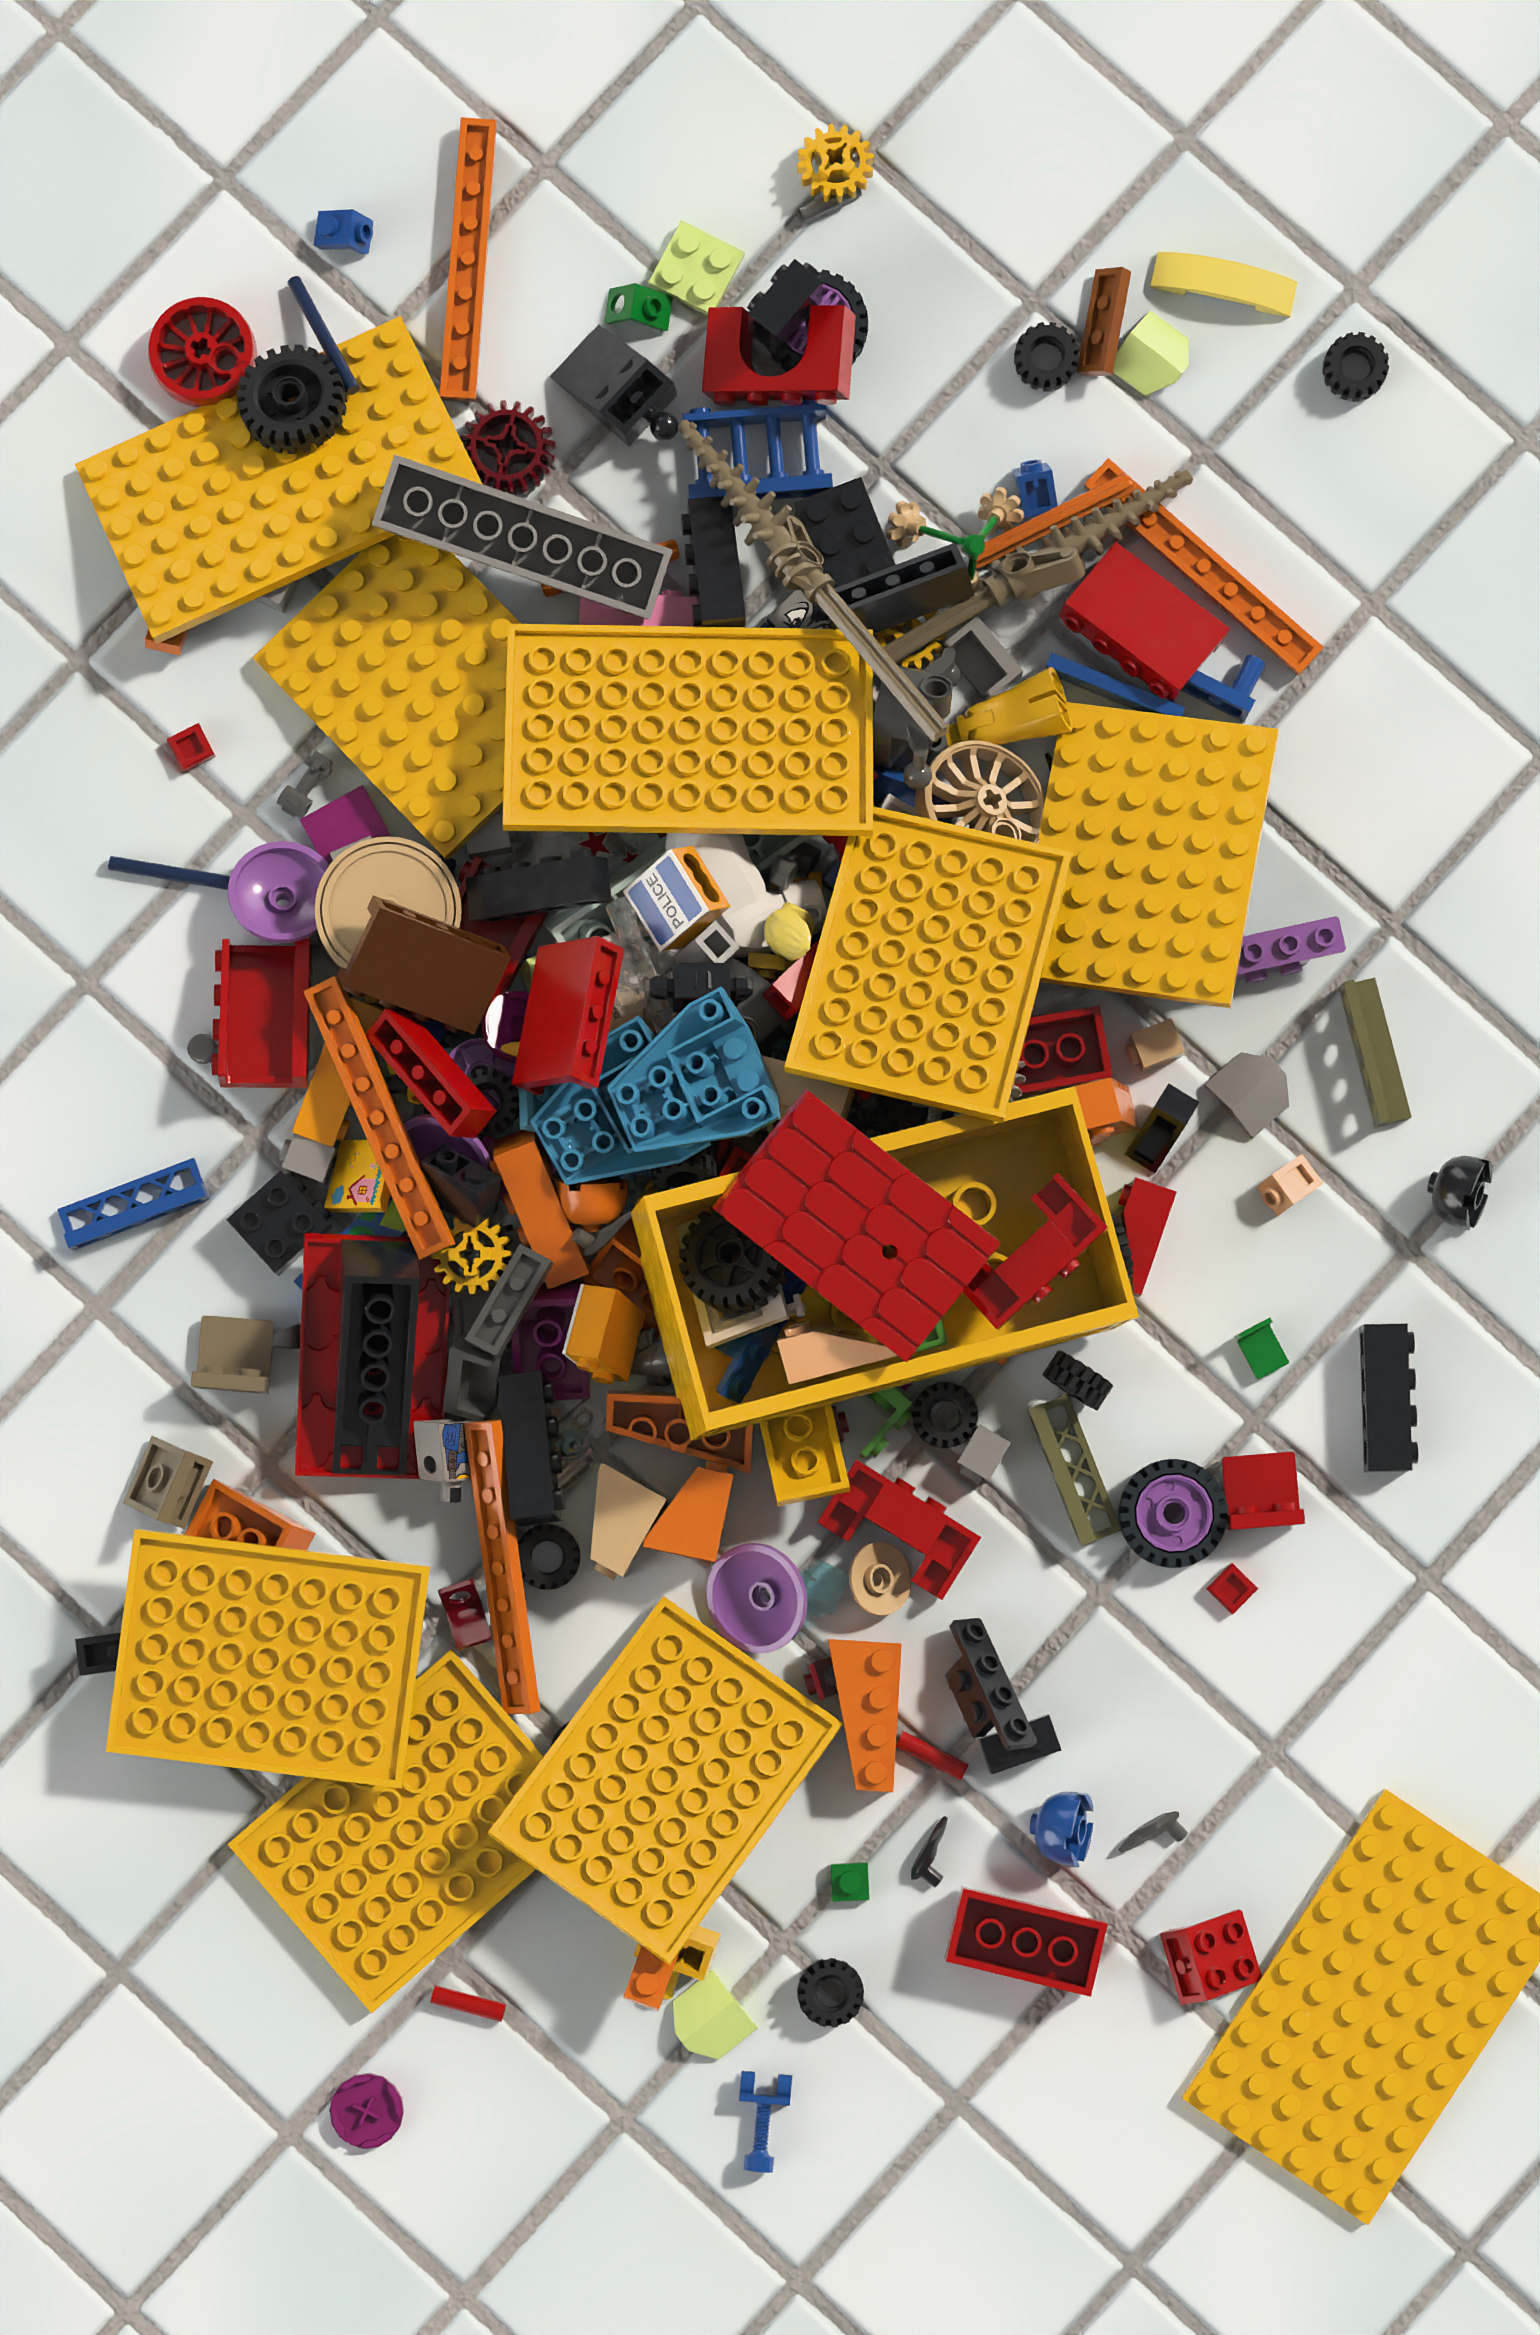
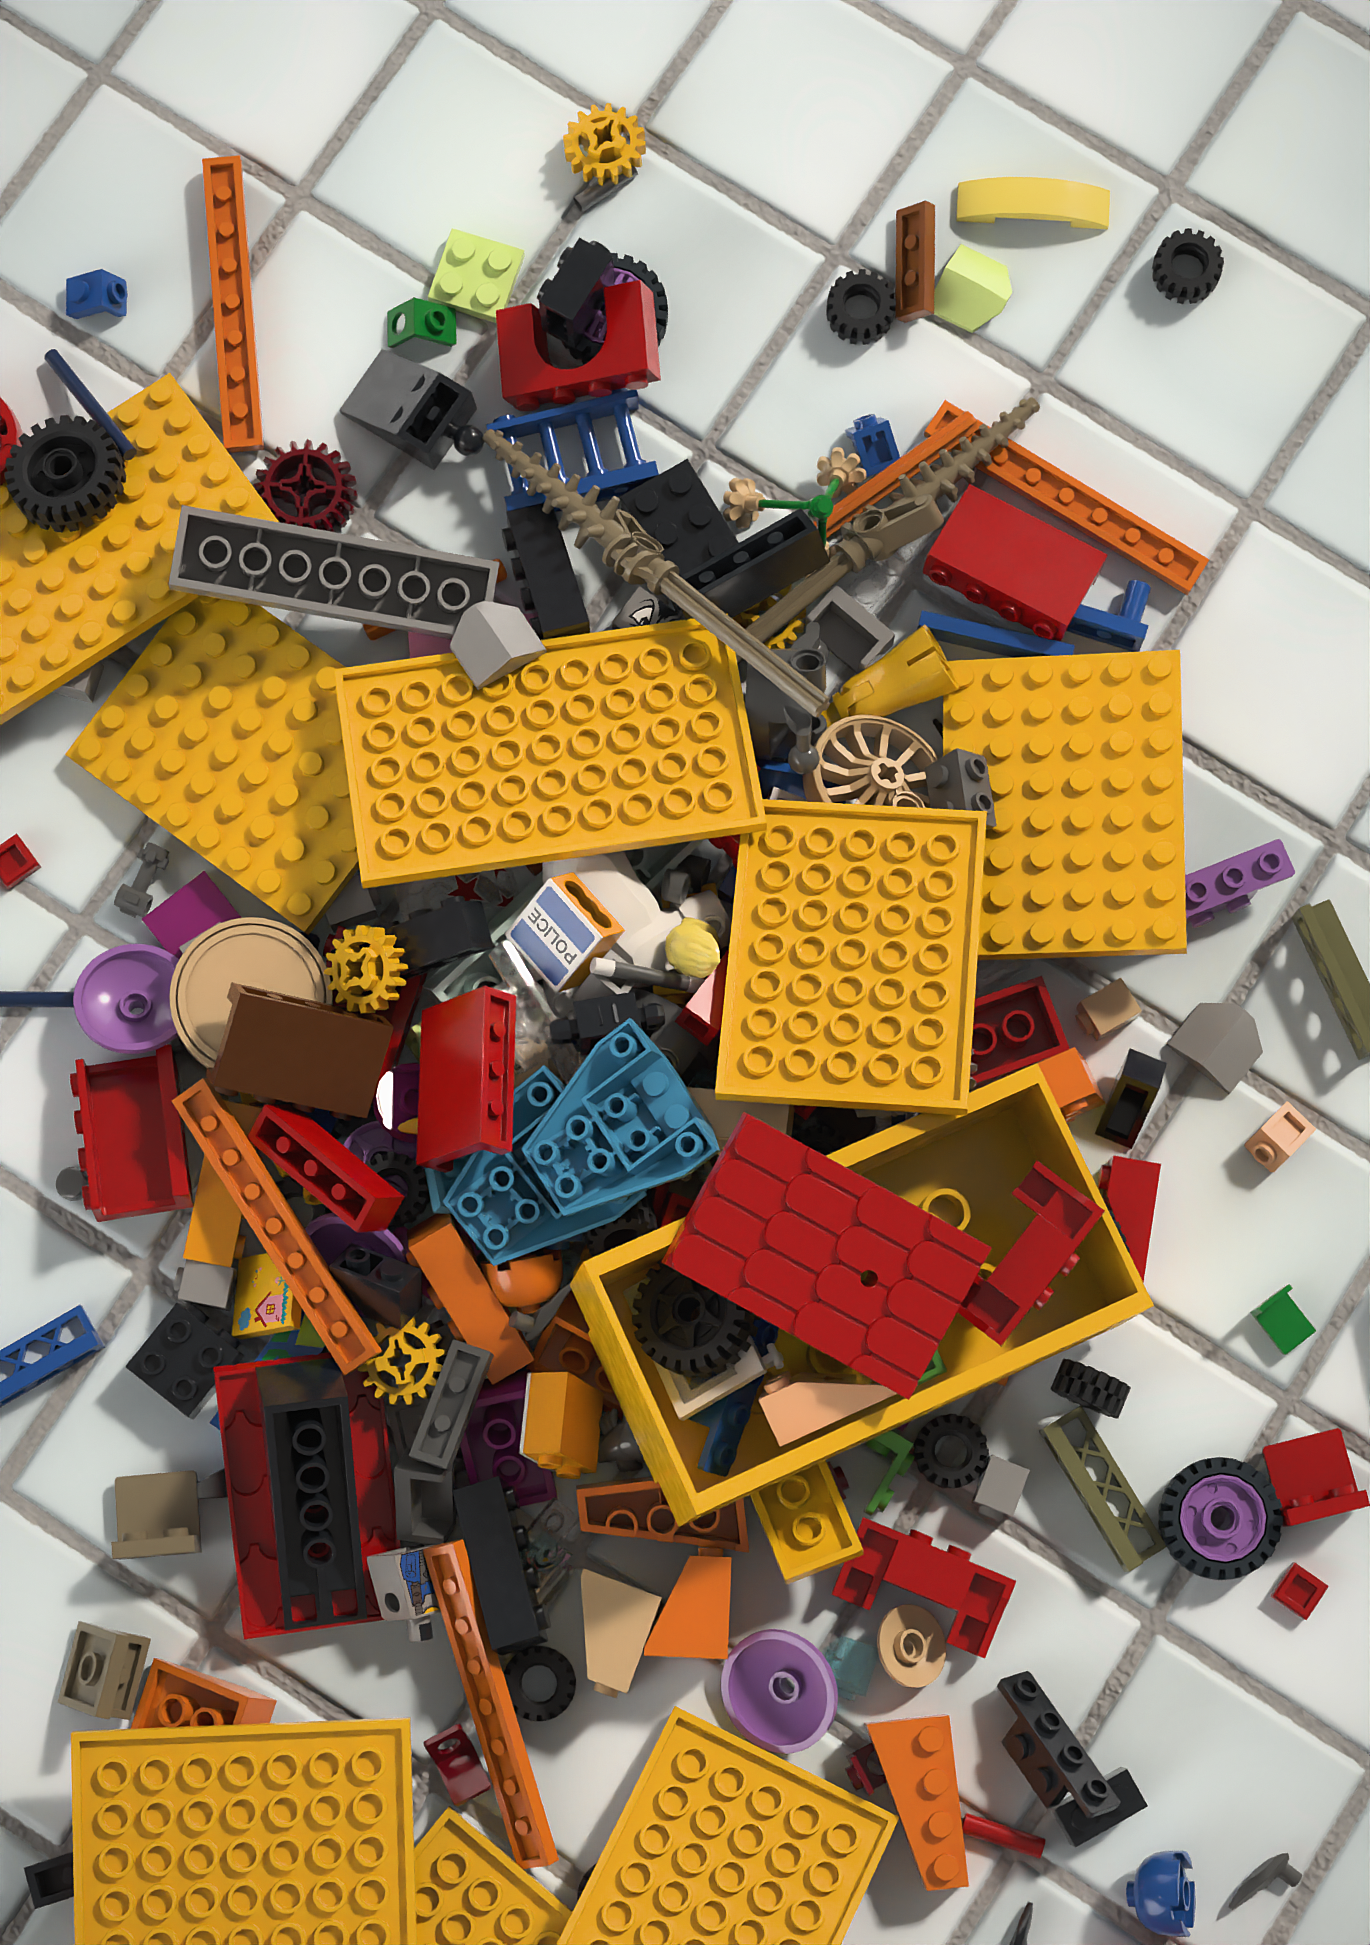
camera: 10 degrees left, 5 degrees down
(494, 901) = (366, 969): none -> yellow gear
(656, 622) = (494, 642): none -> light grey slope
(742, 949) = (645, 975): none -> dark grey bar
(1057, 821) = (961, 783): none -> dark grey bracket

